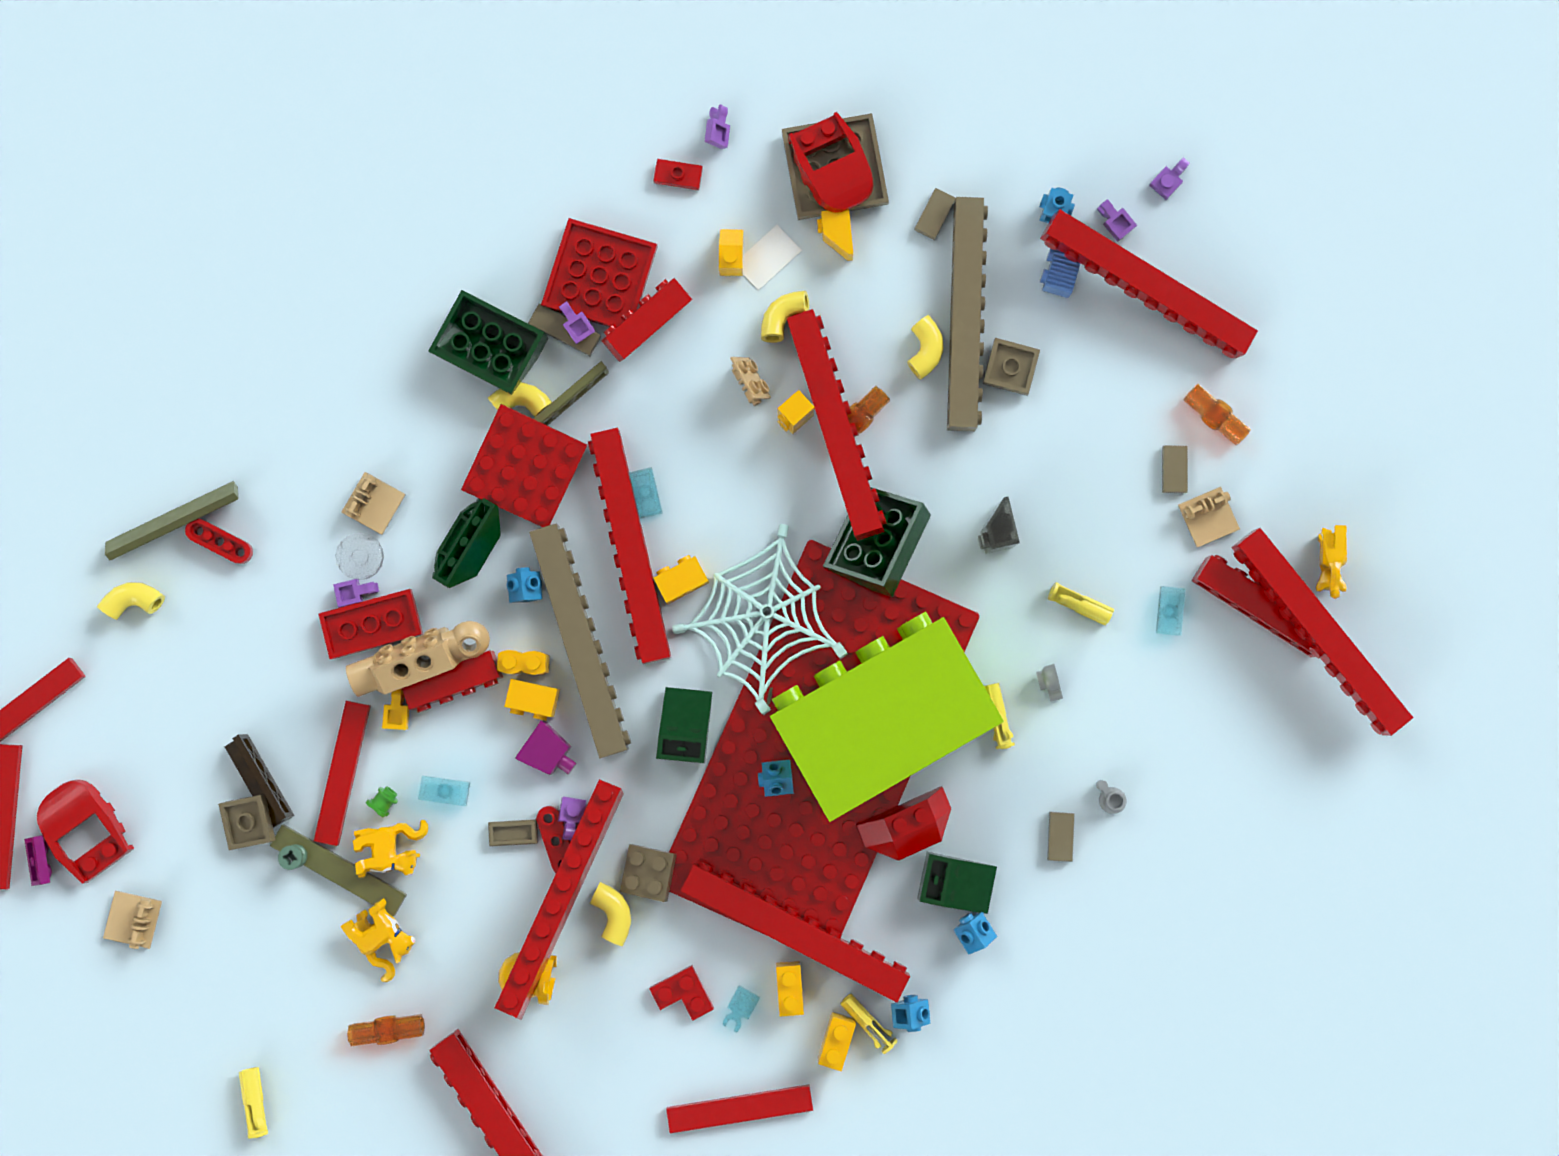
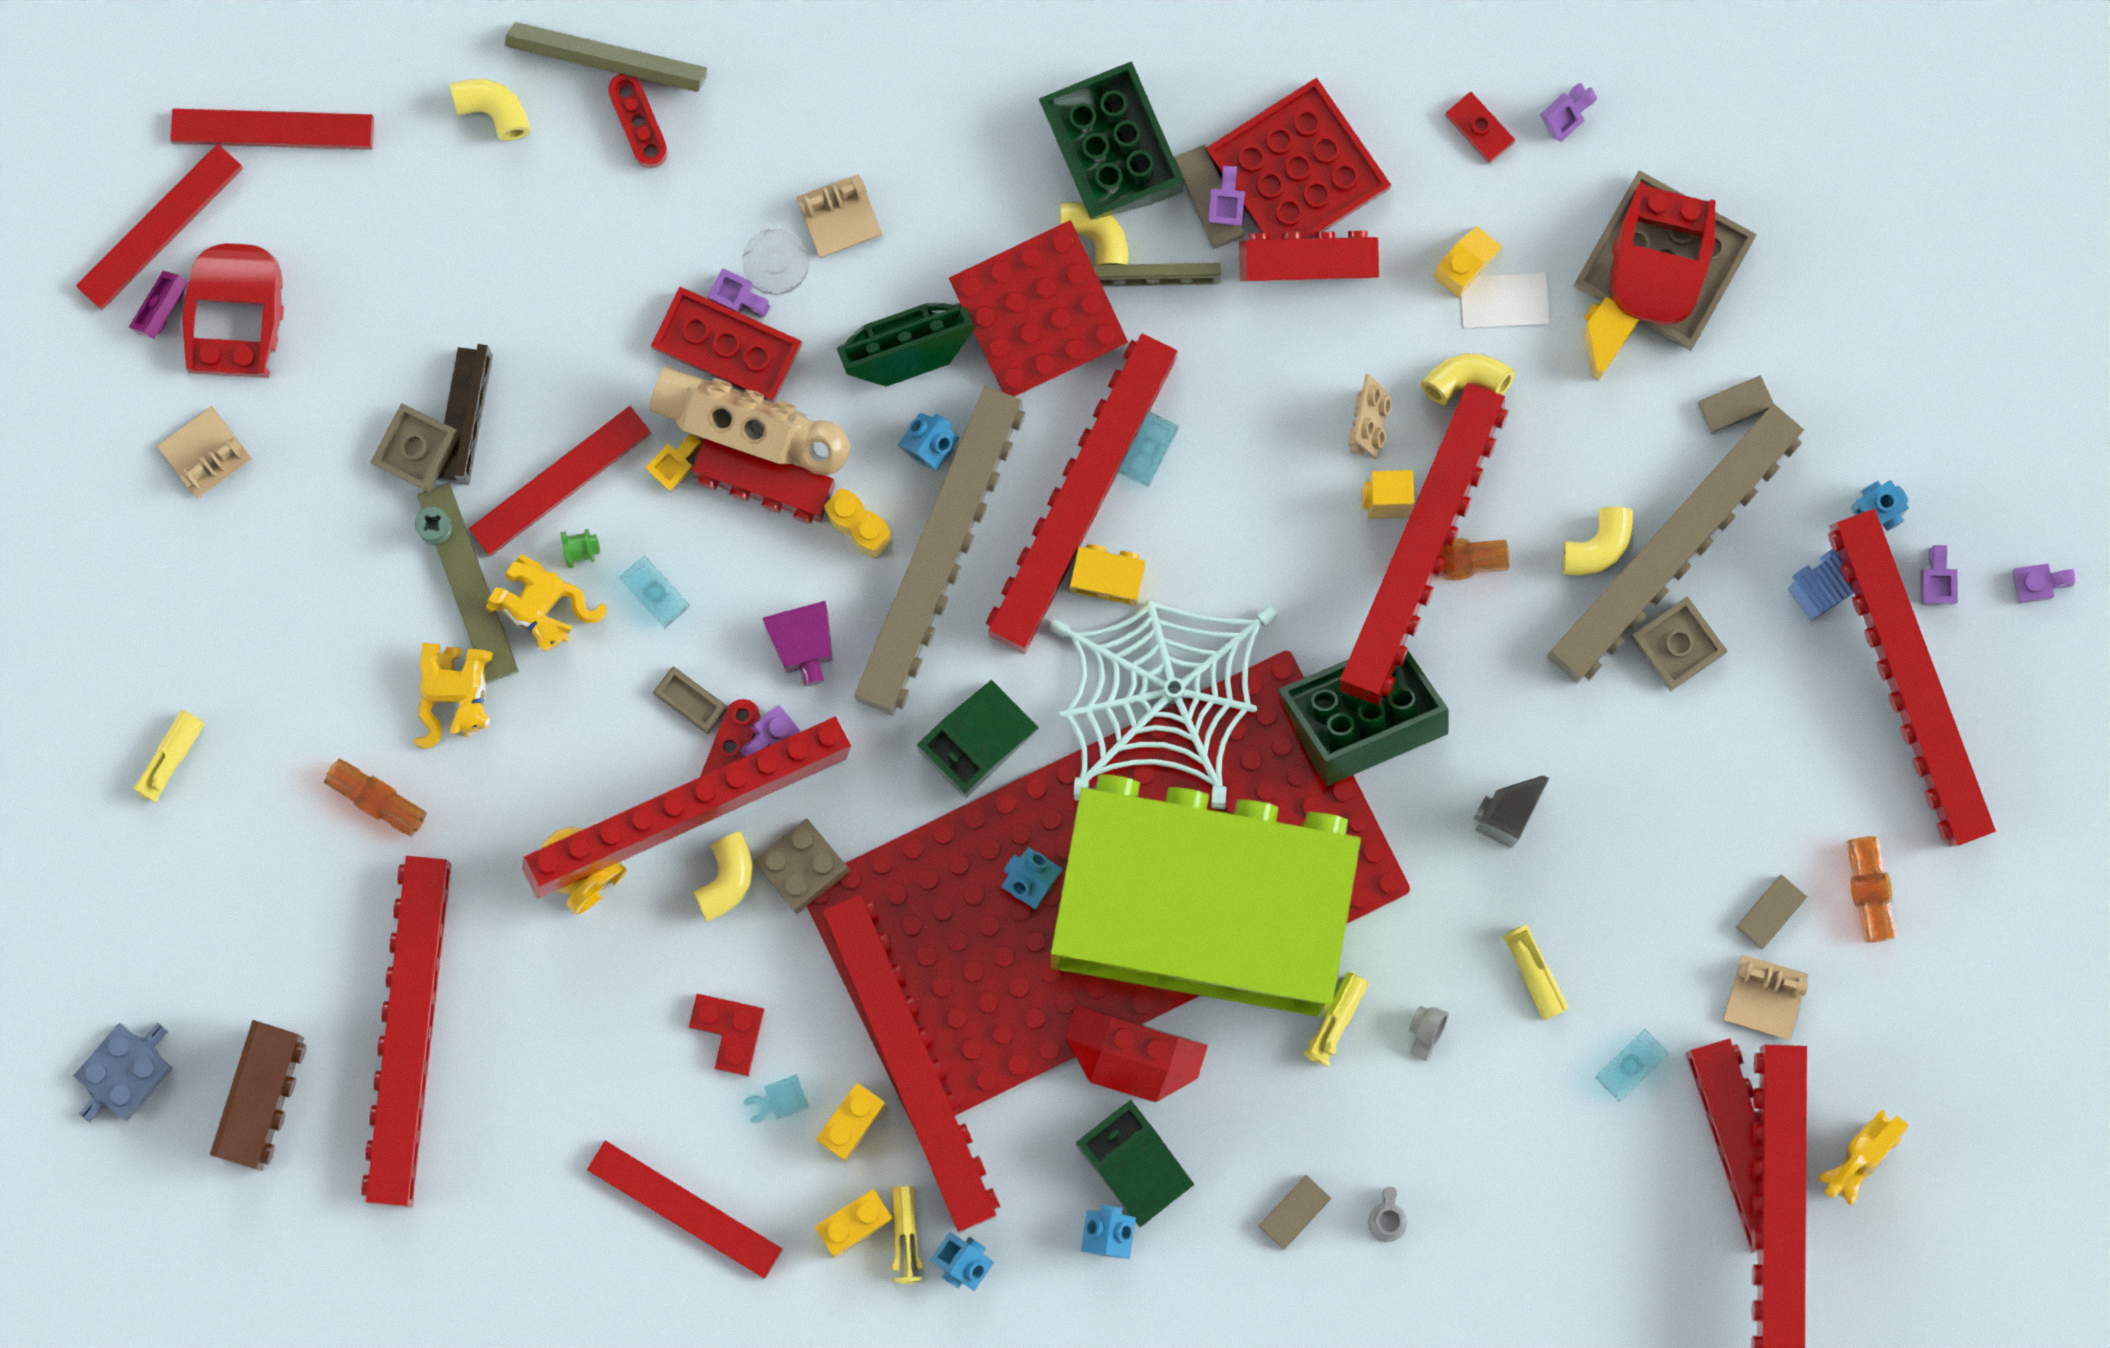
camera: 40 degrees right, 5 degrees down
(531, 698) = (834, 570): yellow brick -> none

